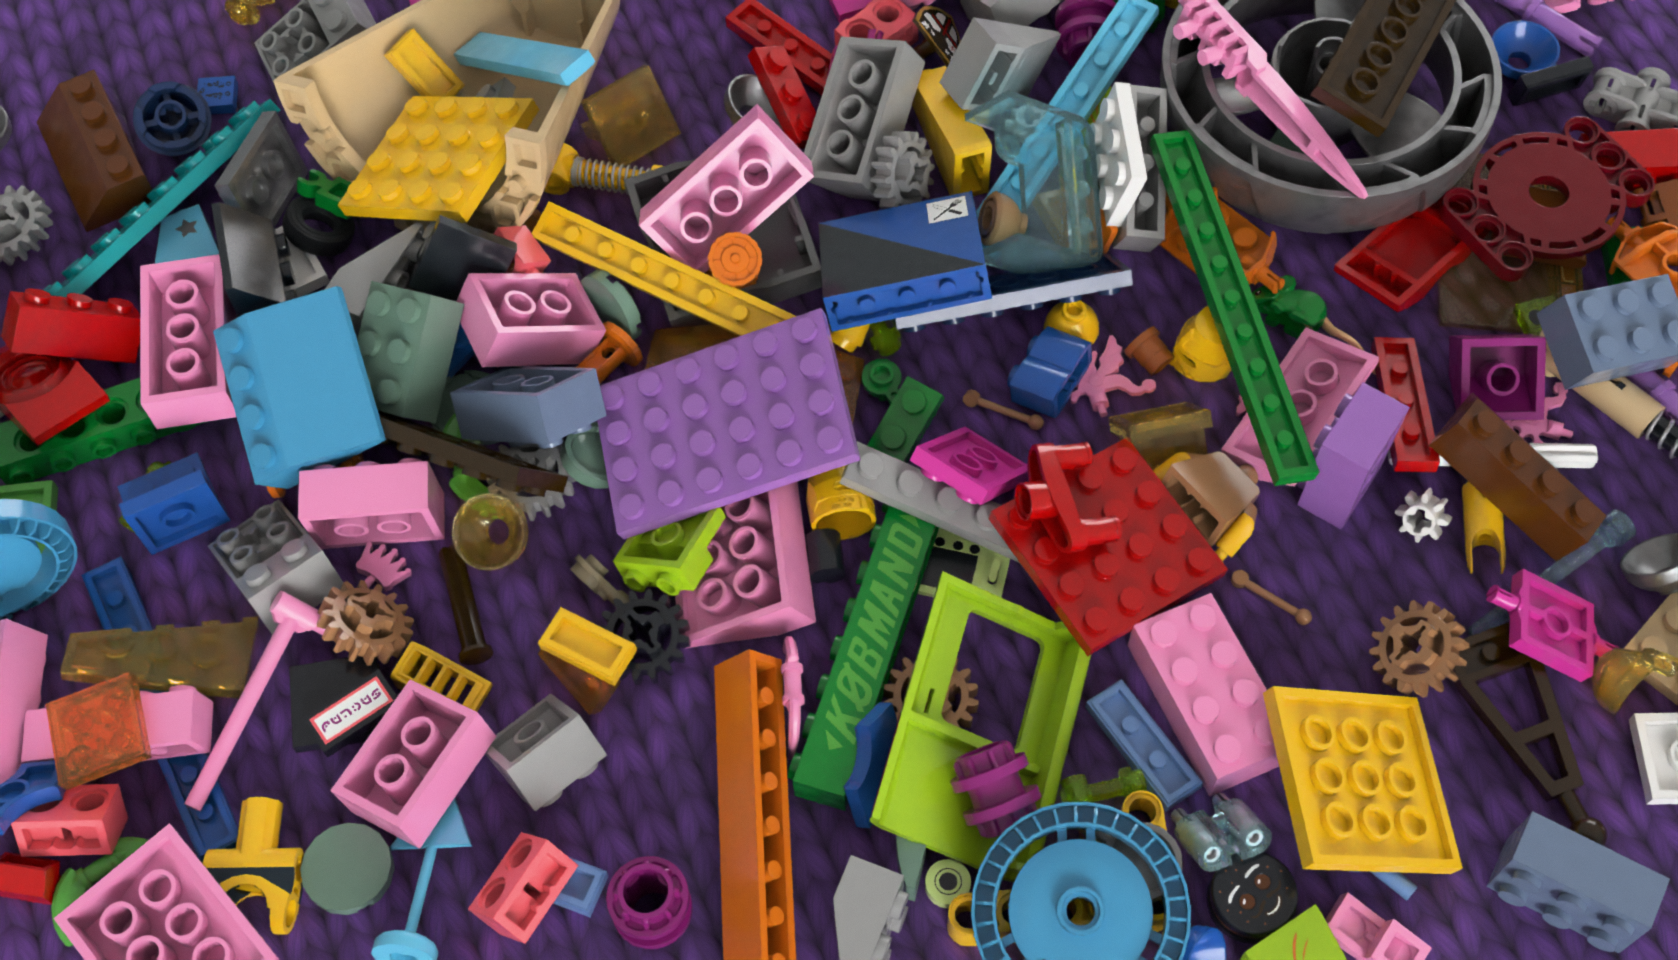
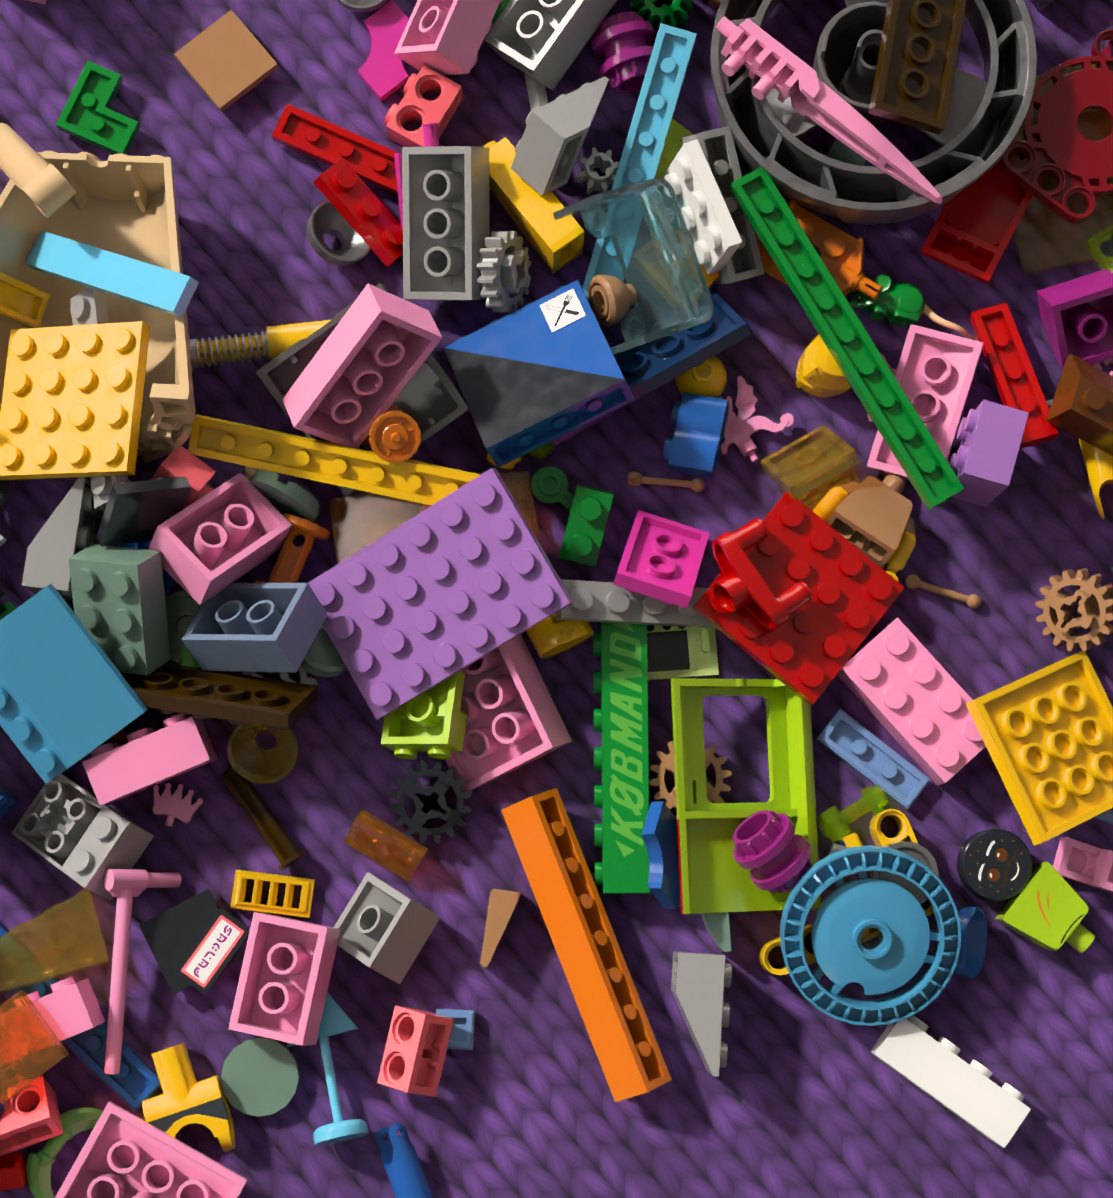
camera: 25 degrees left, 20 degrees up
(365, 622) = (186, 870): medium nougat gear -> none
(587, 646) = (391, 832): yellow tile -> none
(592, 573) = (363, 756): dark tan plate -> none
(629, 117) = (227, 283): clear yellow bracket -> none
(641, 878) = (512, 1053): magenta piece -> none
(672, 775) = (499, 912): none -> medium nougat slope
(793, 696) = (575, 810): bright pink piece -> none
(825, 556) = (558, 675): black piece -> none
(938, 32) = (487, 101): shield -> none
(946, 881) = (751, 930): yellowish green tile -> none
(1150, 351) = (779, 386): dark orange piece -> none
(1217, 837) = (959, 825): clear light blue piece -> none
(1433, 511) = (1053, 479): white gear -> none

